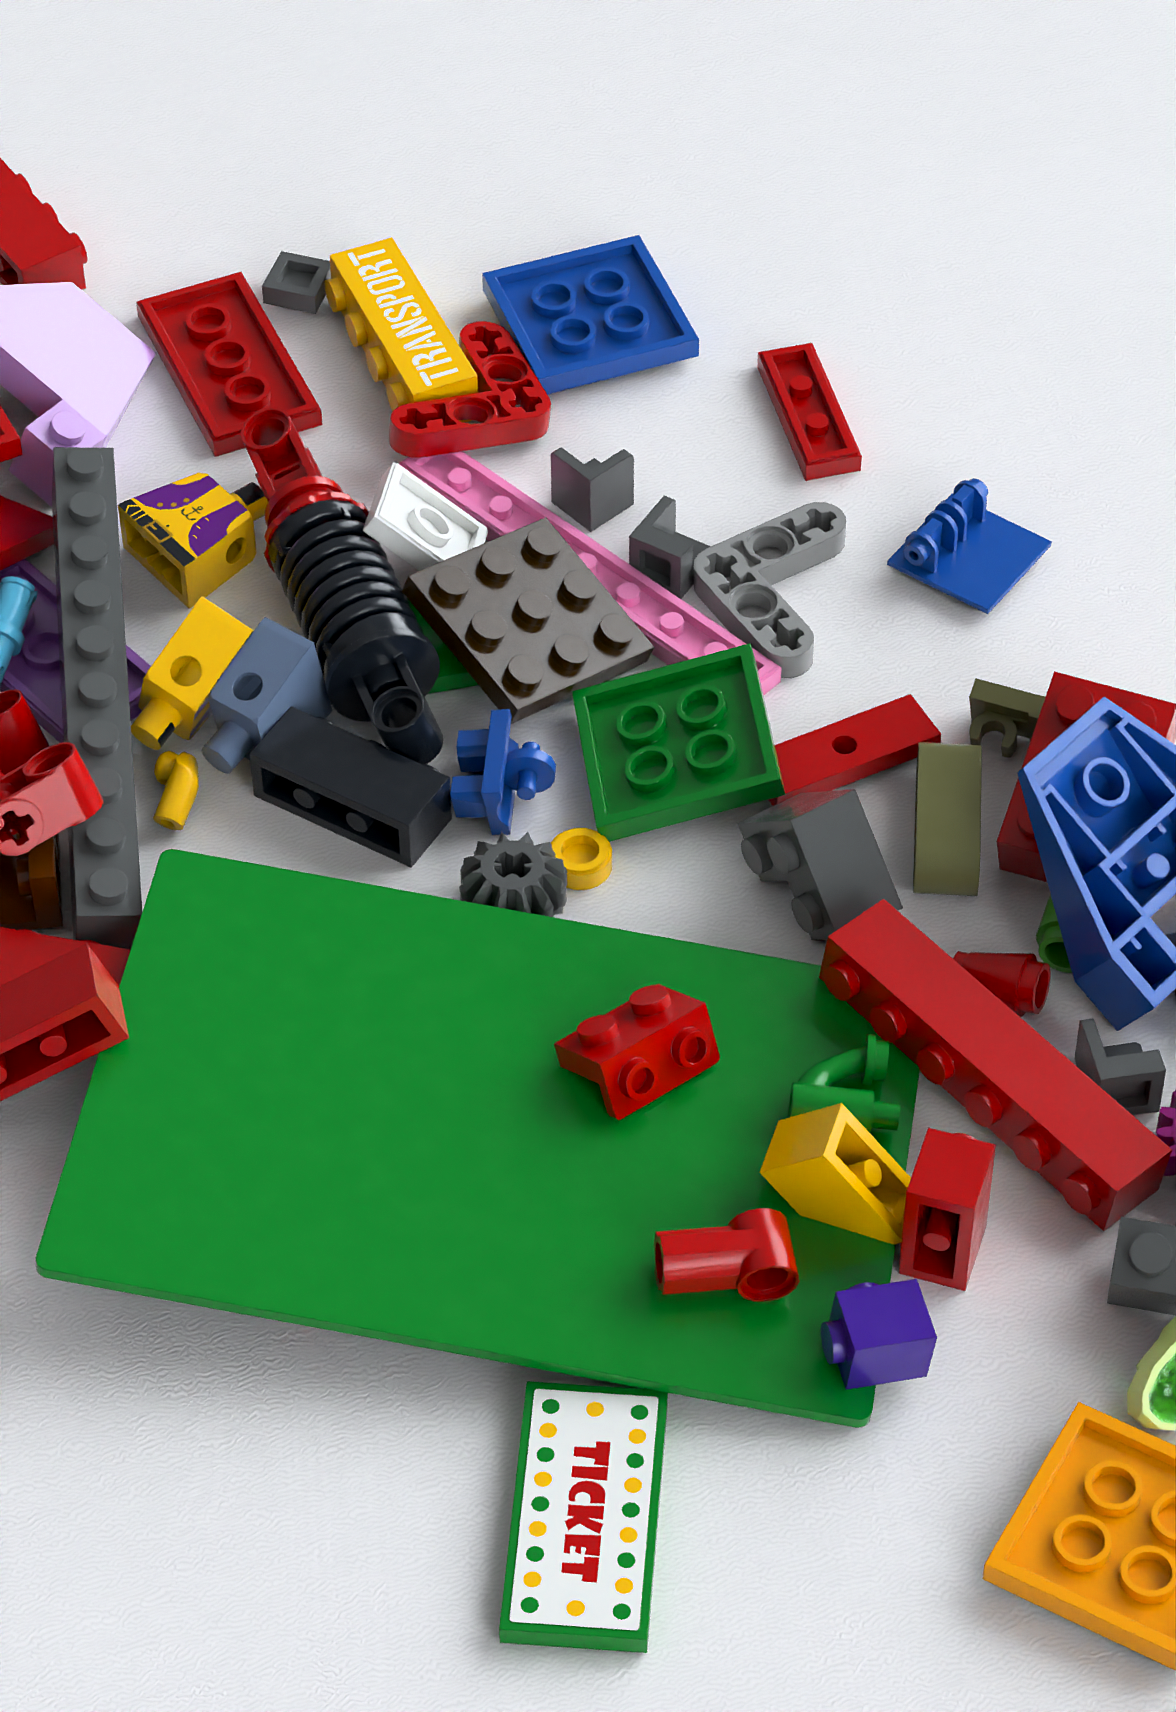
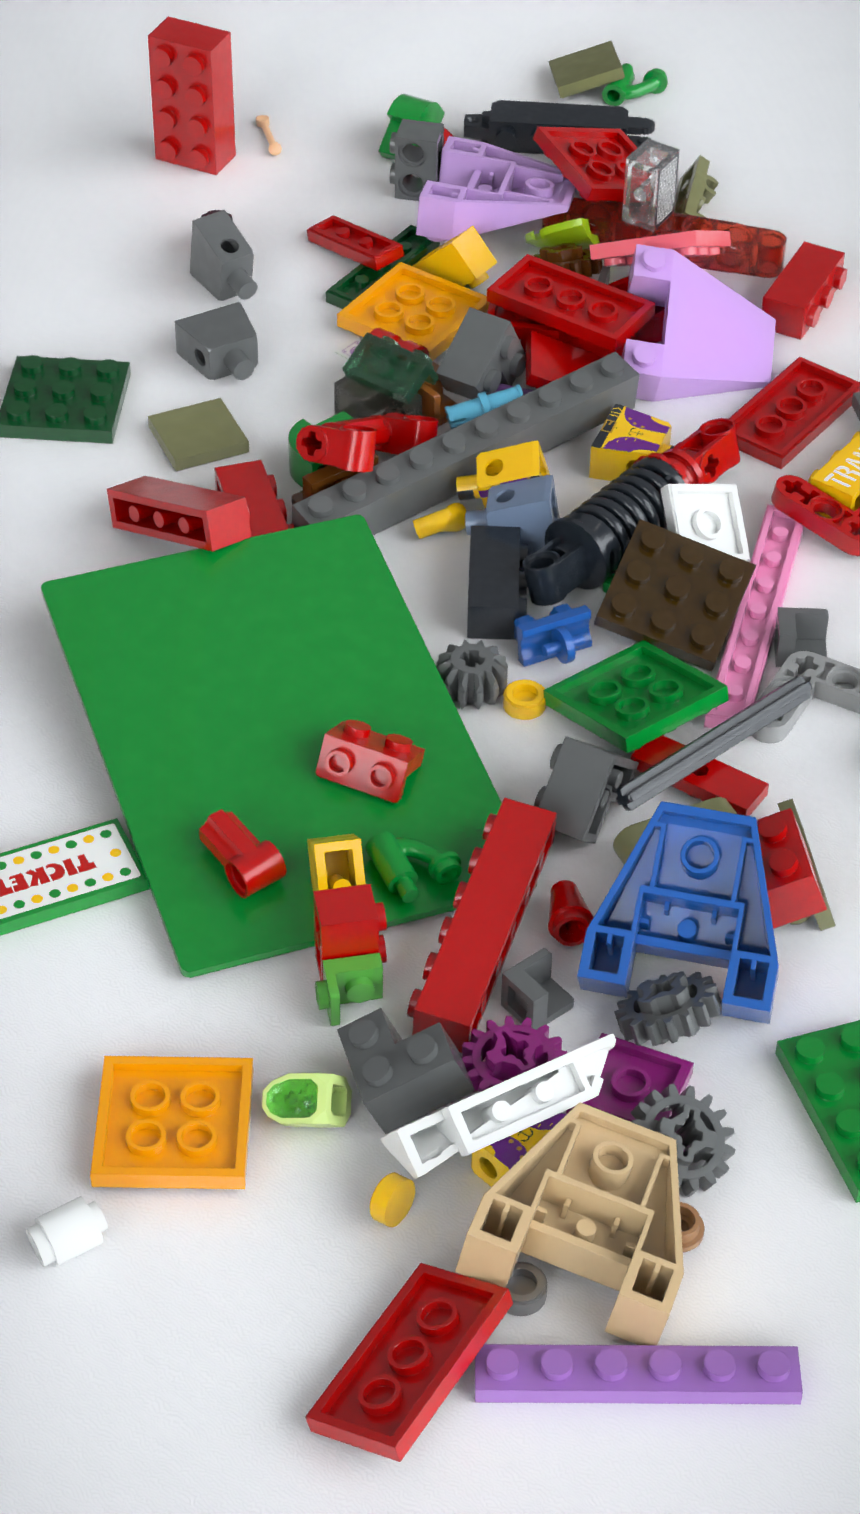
camera: 60 degrees right, 5 degrees down
(592, 490) = (821, 587): dark grey panel -> none
(819, 695) = (713, 743): none -> axle
(879, 1334) = (235, 943): dark purple brick -> none
(998, 1263) = (349, 981): none -> bright green bracket

